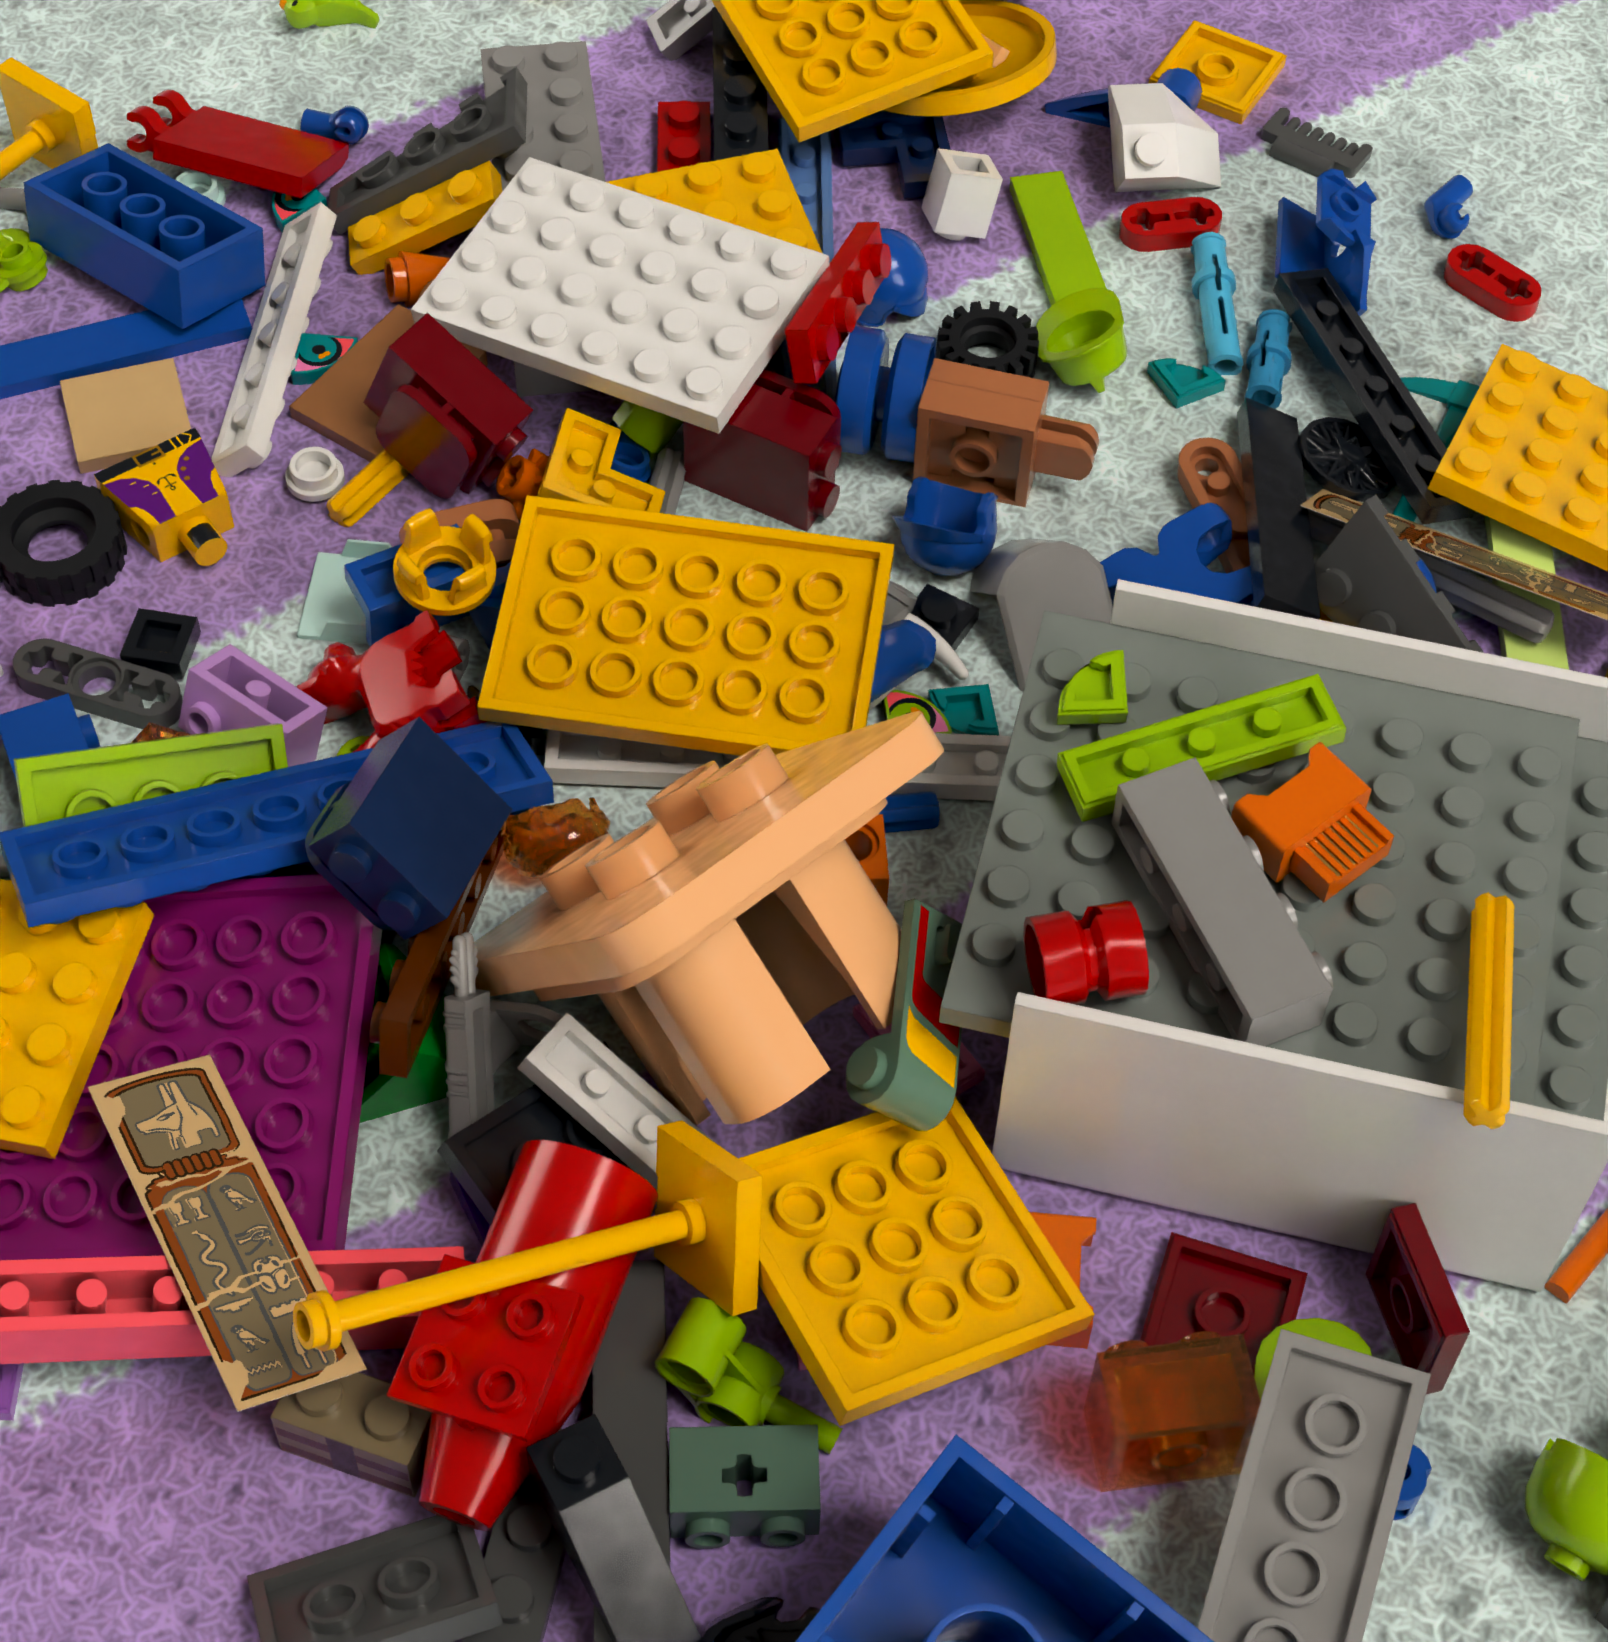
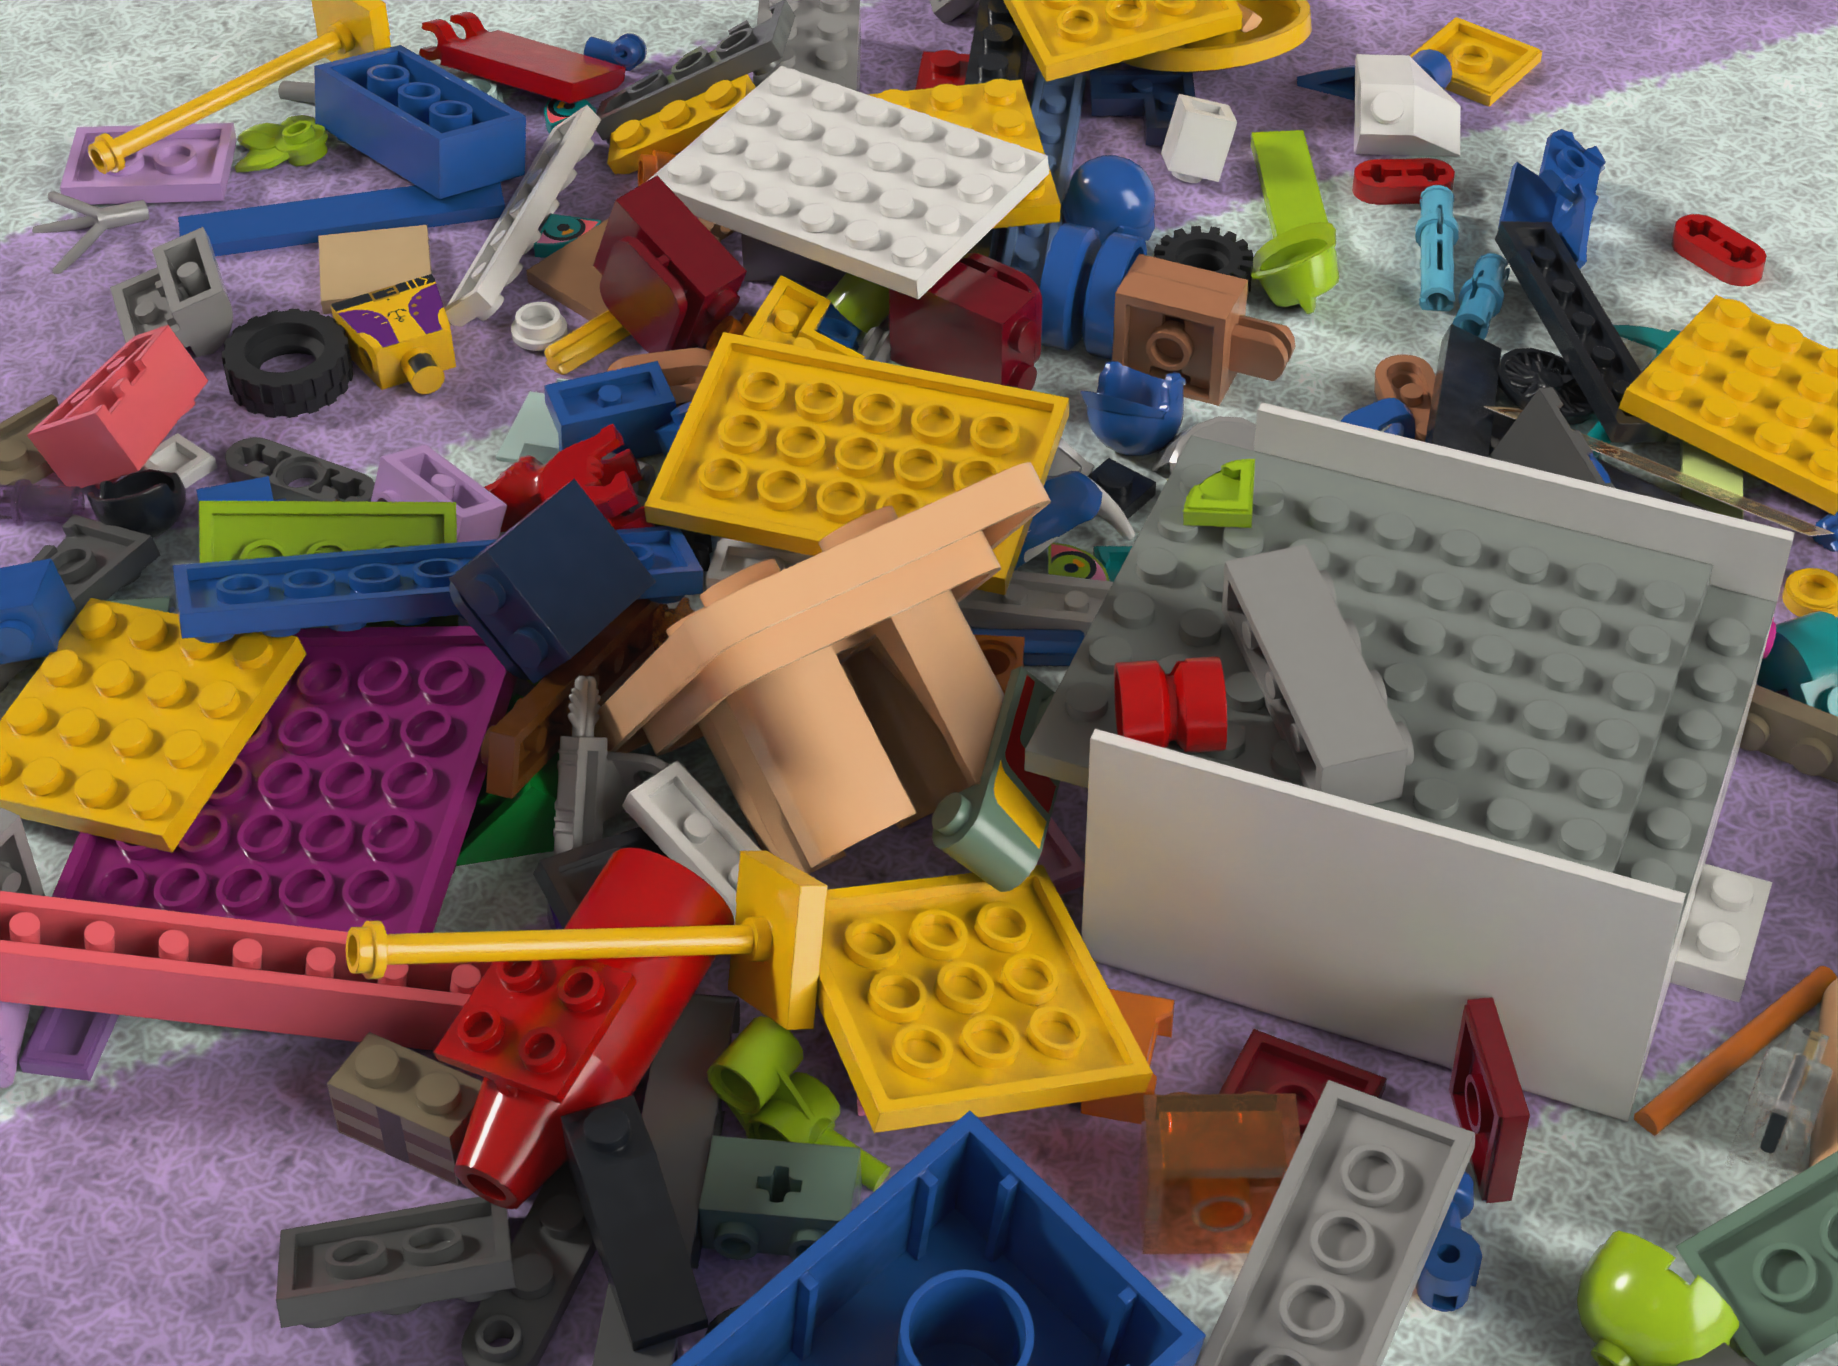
camera: 10 degrees right, 10 degrees down
(161, 641) = (363, 444): black plate -> none
(221, 1228) = (302, 898): sticker -> none
(429, 544) = (625, 372): yellow piece -> none
(837, 302) = (1051, 199): red plate -> none
(1184, 383) = (1395, 314): teal tile -> none
(1222, 738) = (1341, 542): lime tile -> none
(1309, 153) = (1537, 123): dark grey piece -> none
(1316, 826) = (1420, 619): orange piece -> none
(1444, 206) = (1680, 184): blue arm -> none
(1489, 1012) = (1567, 787): yellow axle -> none

